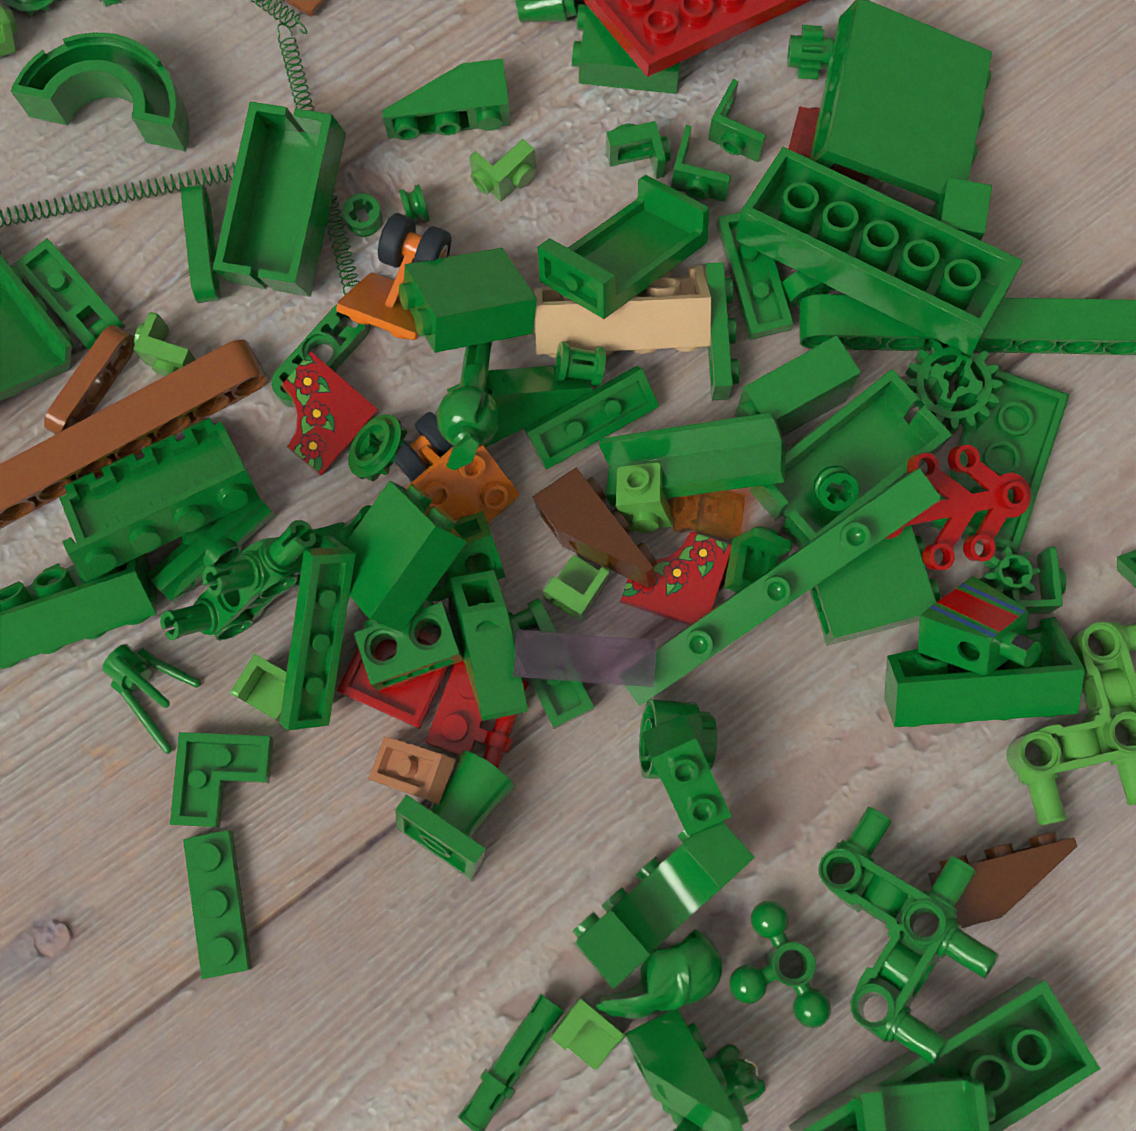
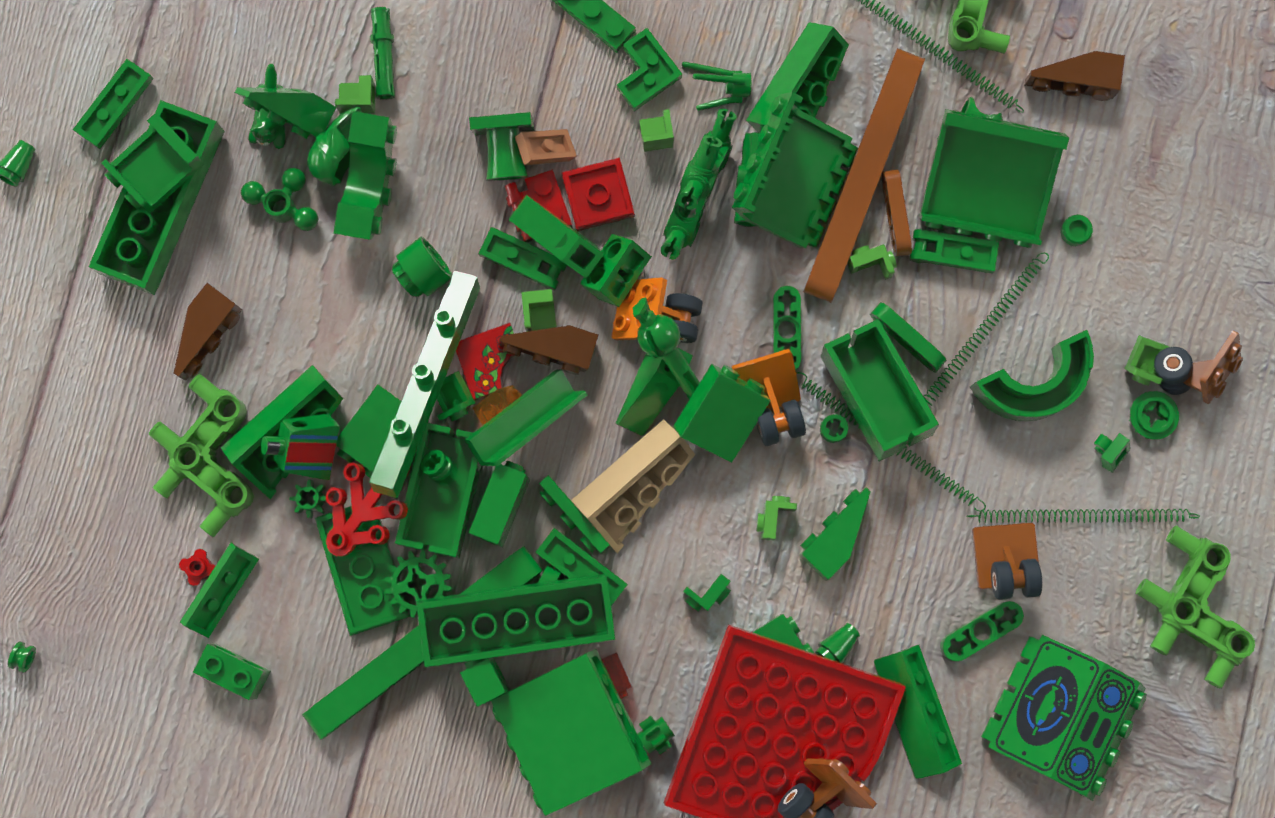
camera: 140 degrees right, 5 degrees up
(317, 635) = (644, 167): green panel -> none
(326, 413) = (752, 298): red tile -> none
(367, 455) = (716, 298): green gear -> none
(400, 554) = (636, 235): green brick -> none
(411, 657) = (591, 201): green brick -> none
(414, 204) = (807, 455): green bush -> none
(584, 658) = (500, 268): panel -> none
(591, 417) = (605, 409): green plate -> none
(592, 371) = (633, 429): green bush -> none
(627, 249) = (659, 514): green panel -> none
(642, 498) = (541, 381): bright green bracket -> none
(686, 775) = (398, 244): green brick -> none
(697, 181) = (656, 596): green bracket -> none
(731, 135) = (660, 641): green bracket -> none
(906, 957) = (221, 248): green pin -> none
(1051, 582) = (282, 511): green bracket -> none

